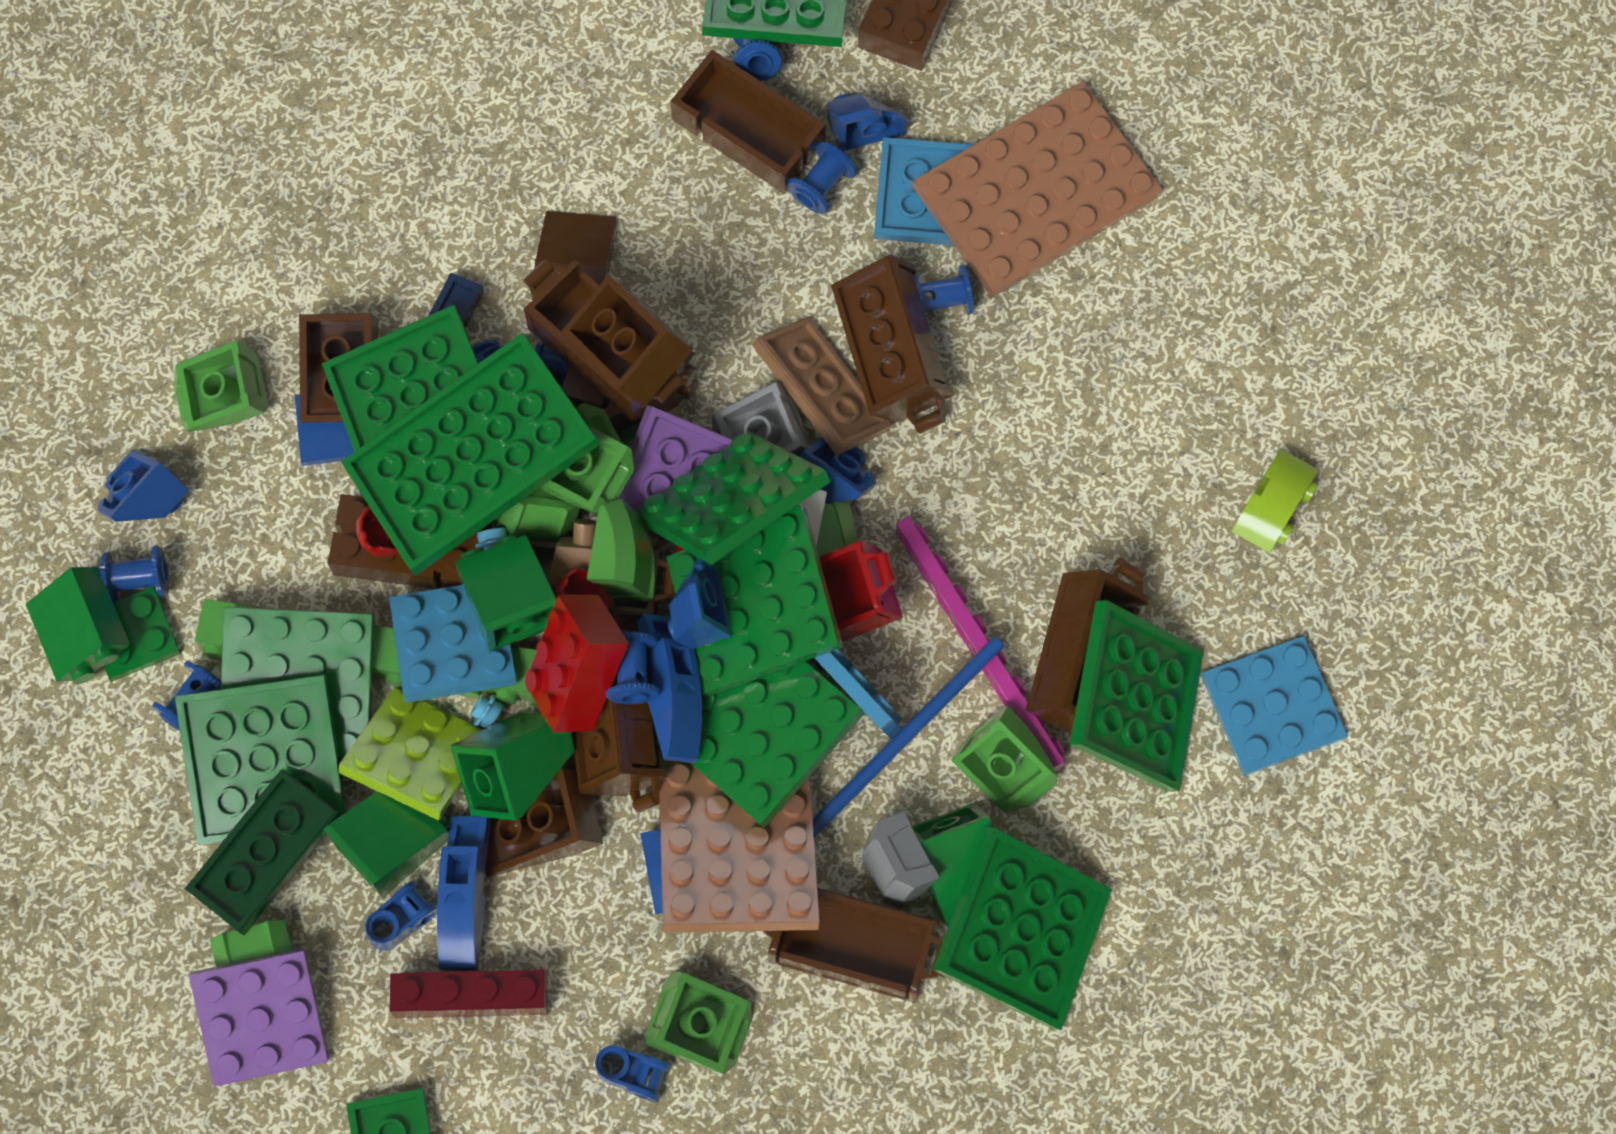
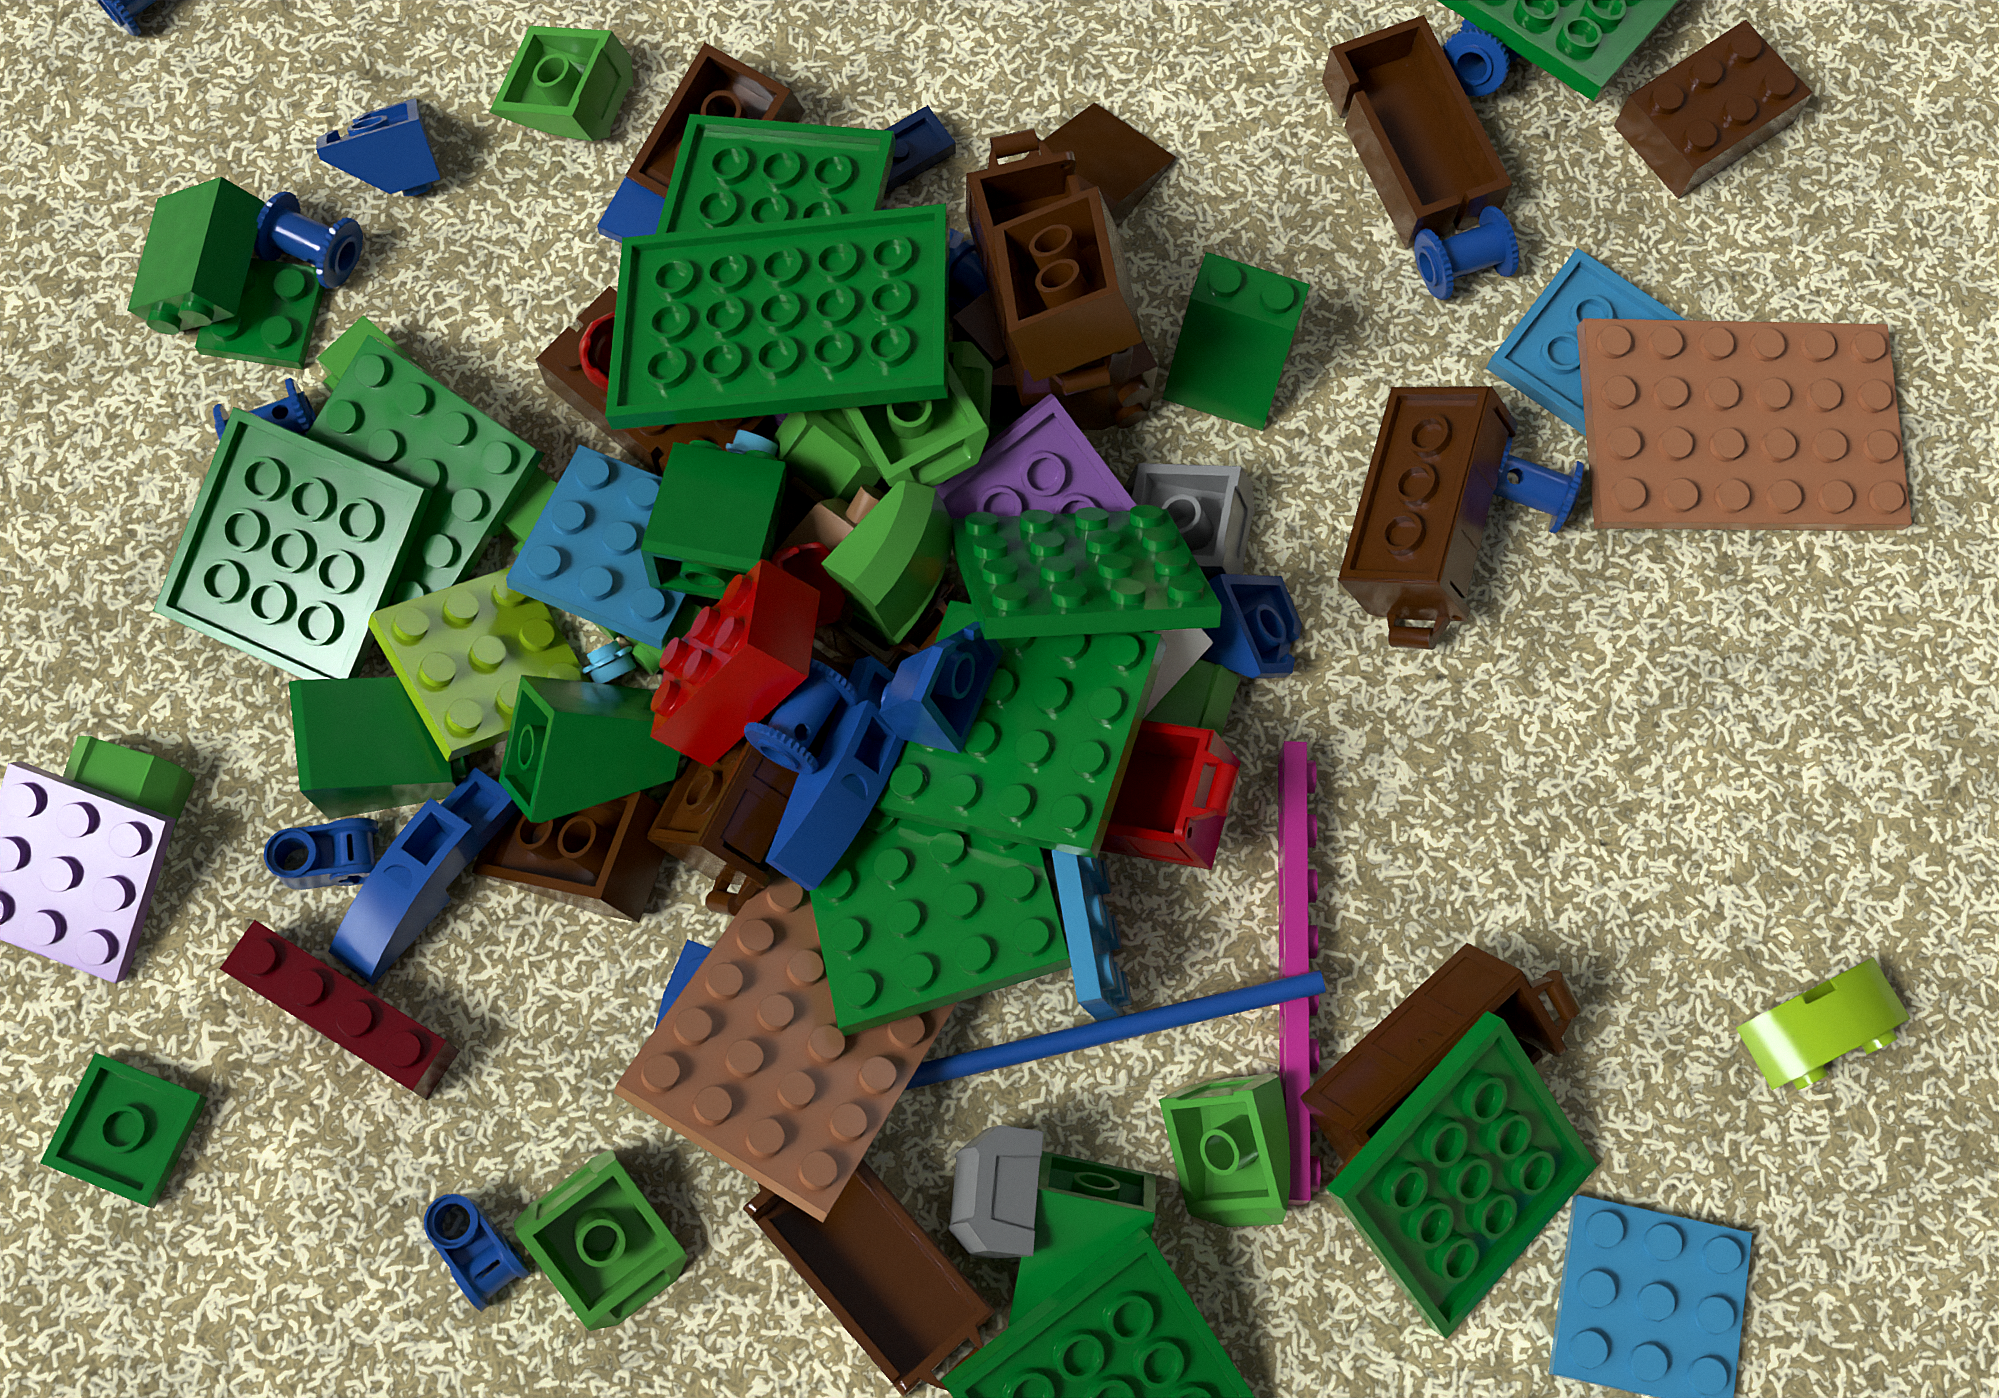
camera: 30 degrees right, 0 degrees up
(262, 852) = (207, 665): dark green tile -> none
(724, 309) = (1235, 340): none -> green slope
(820, 385) = (1298, 508): medium nougat tile -> none
(862, 121) = (1564, 214): blue slope -> none

